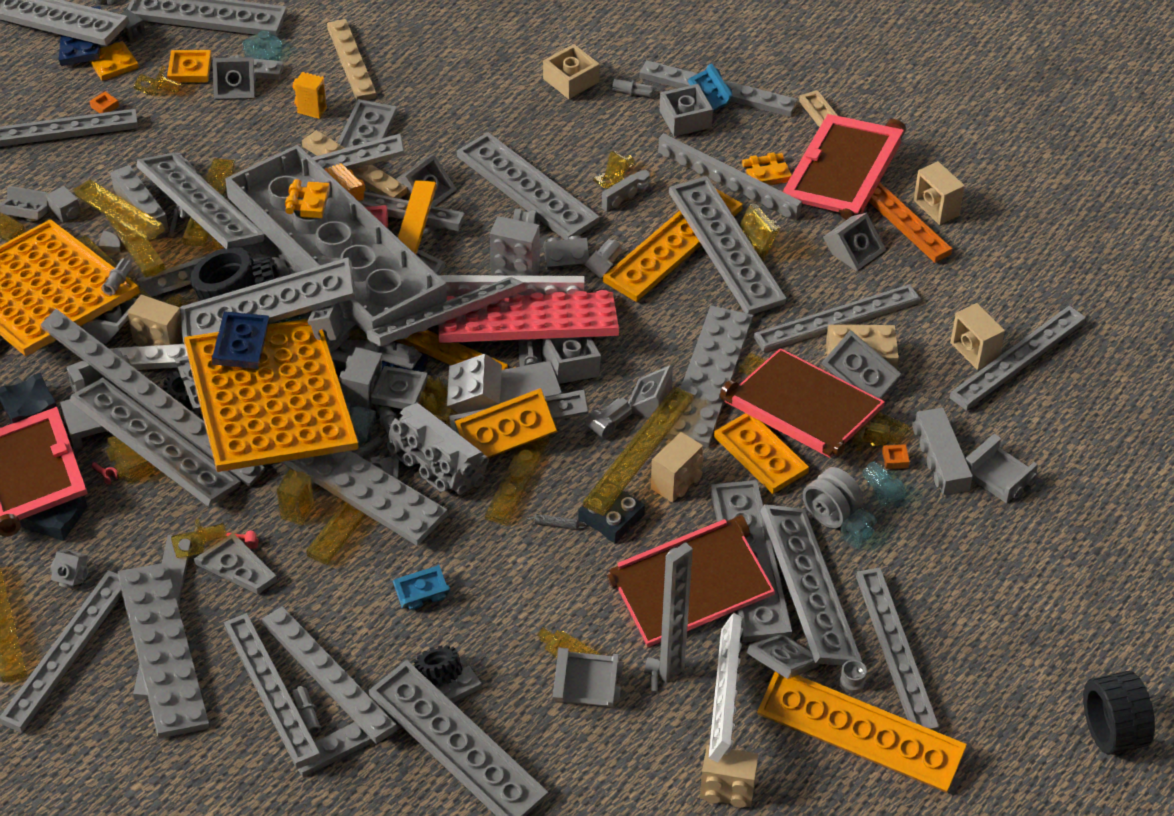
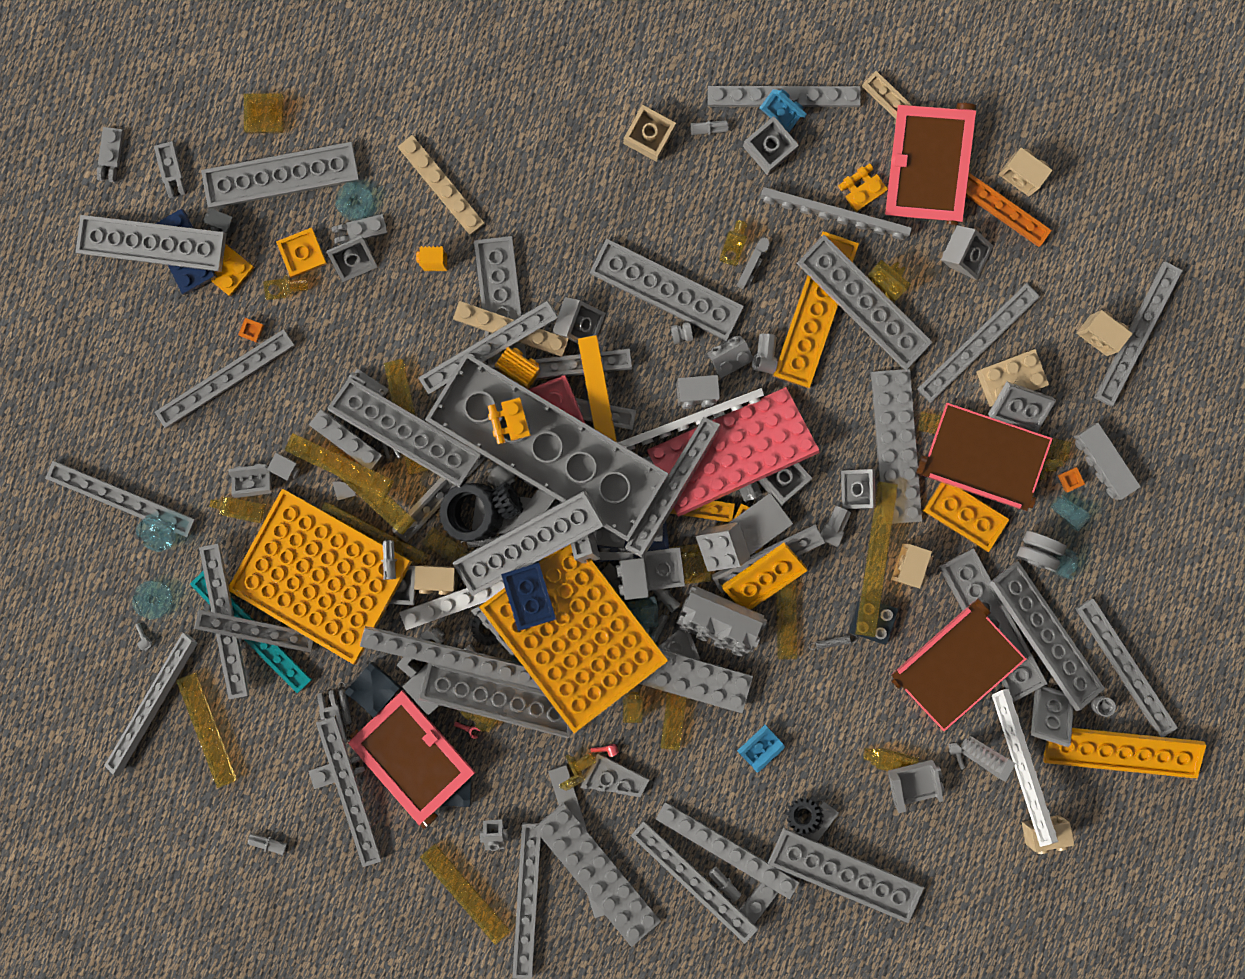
camera: 25 degrees left, 40 degrees up
(999, 470) = (1156, 463): light grey panel -> none

